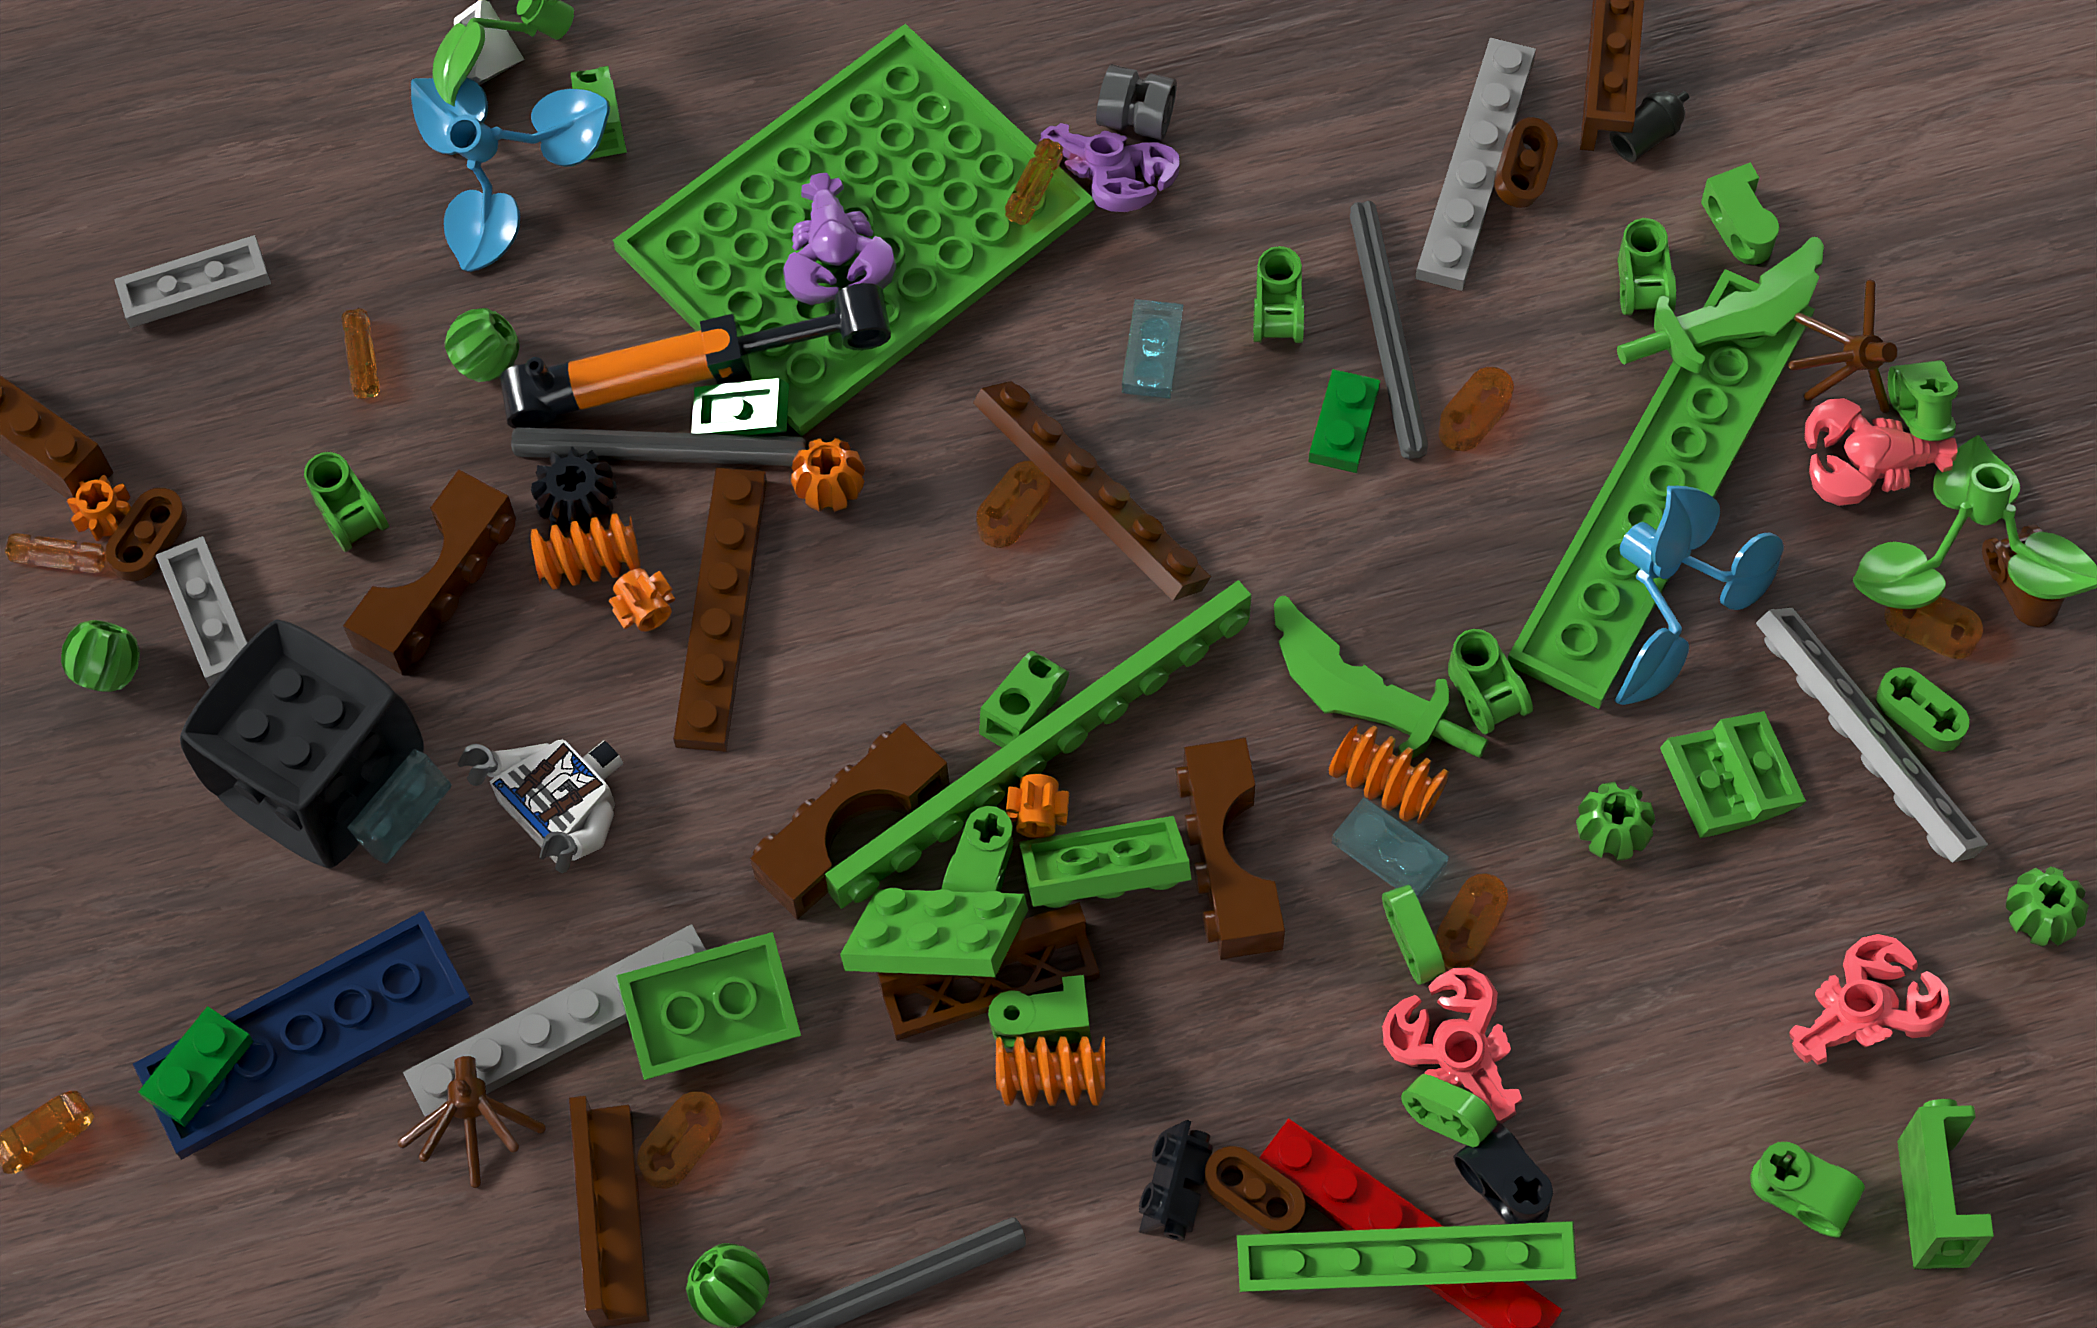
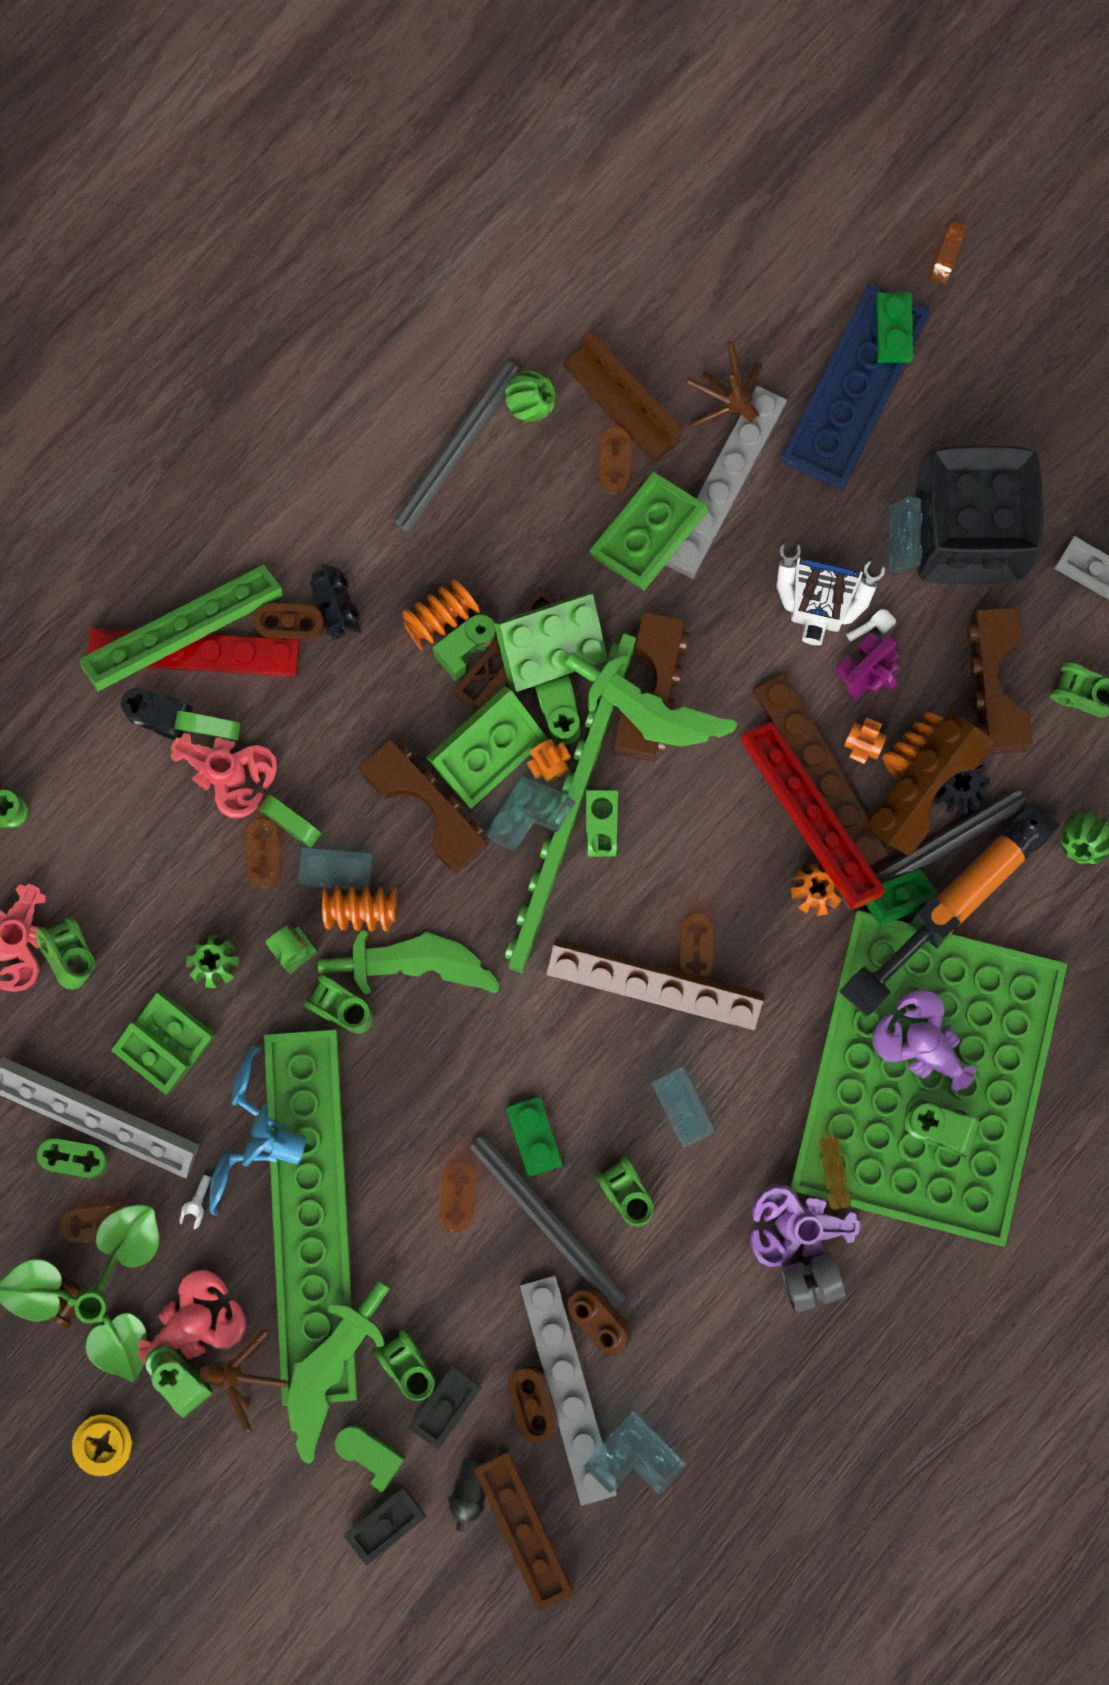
camera: 145 degrees right, 15 degrees up
(509, 733) = (882, 620): none -> white hand
(545, 686) = (874, 670): none -> magenta hips
(611, 491) = (905, 812): none -> reddish brown arch
(772, 546) = (812, 816): none -> red plate
(877, 775) = (646, 710): none -> bright green sword
(884, 153) = (948, 1129): none -> bright green piece
(1104, 771) = (528, 805): none -> clear light blue plate
(1396, 200) = (600, 1320): none -> reddish brown plate
(1445, 63) = (637, 1448): none -> clear light blue plate
(1509, 777) = (291, 947): none -> bright green leg
(1608, 215) = (445, 1407): none -> pearl dark grey plate
(1766, 143) = (385, 1525): none -> pearl dark grey plate
(1795, 573) = (194, 1207): none -> white hand
(1798, 949) = (63, 946): none -> bright green piece
(2053, 374) = (85, 1449): none -> yellow gear

